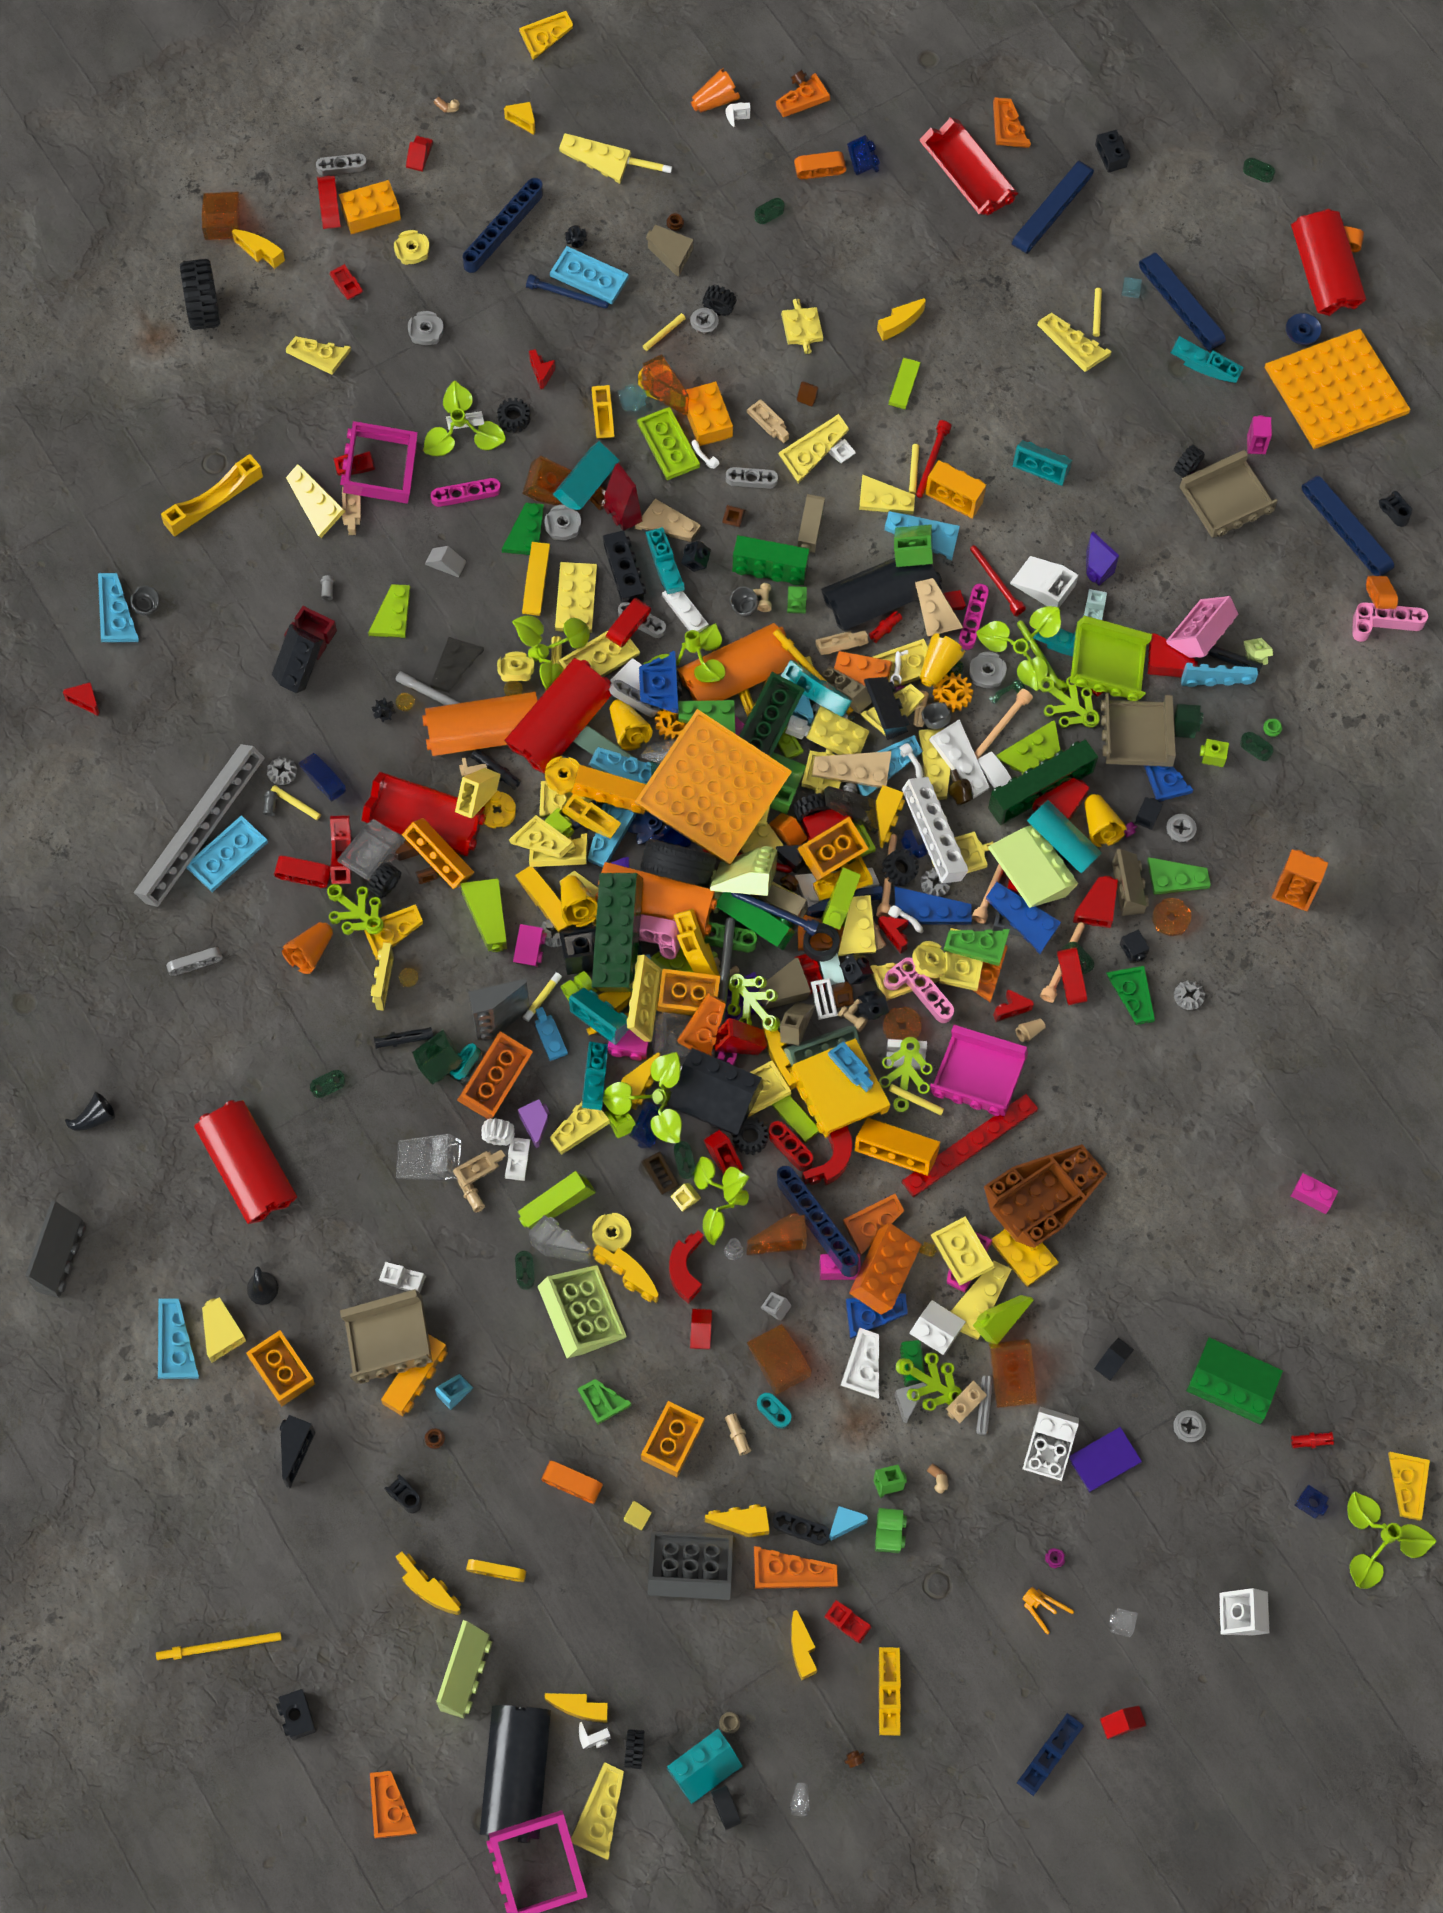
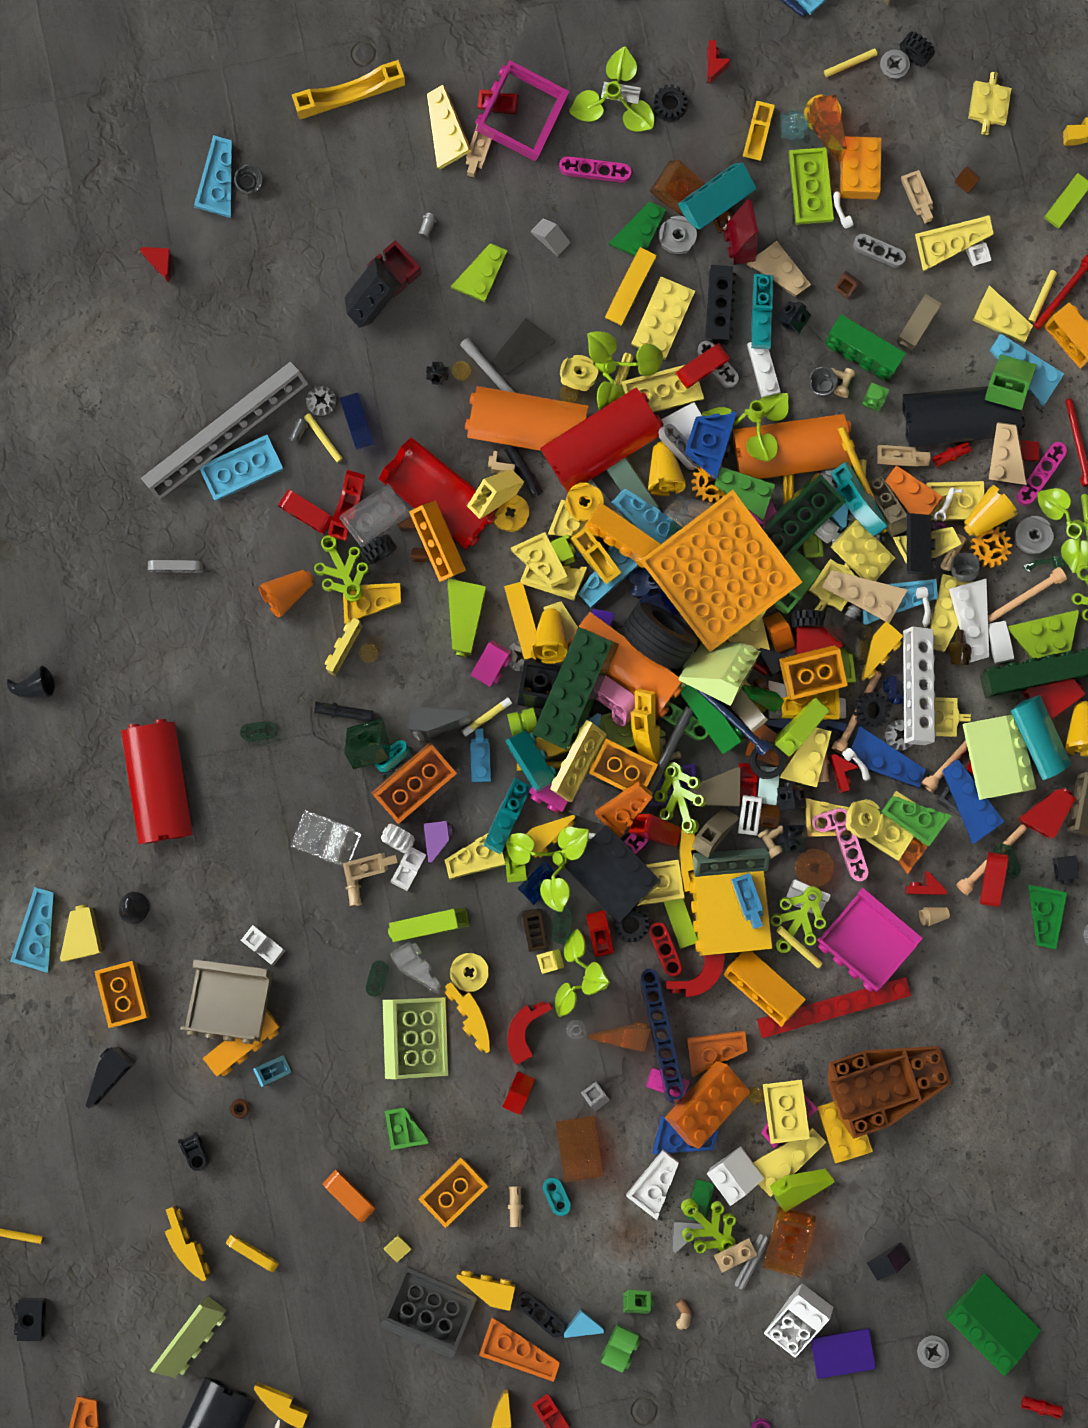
camera: 20 degrees right, 15 degrees up
(799, 888) = (766, 698): none -> green slope

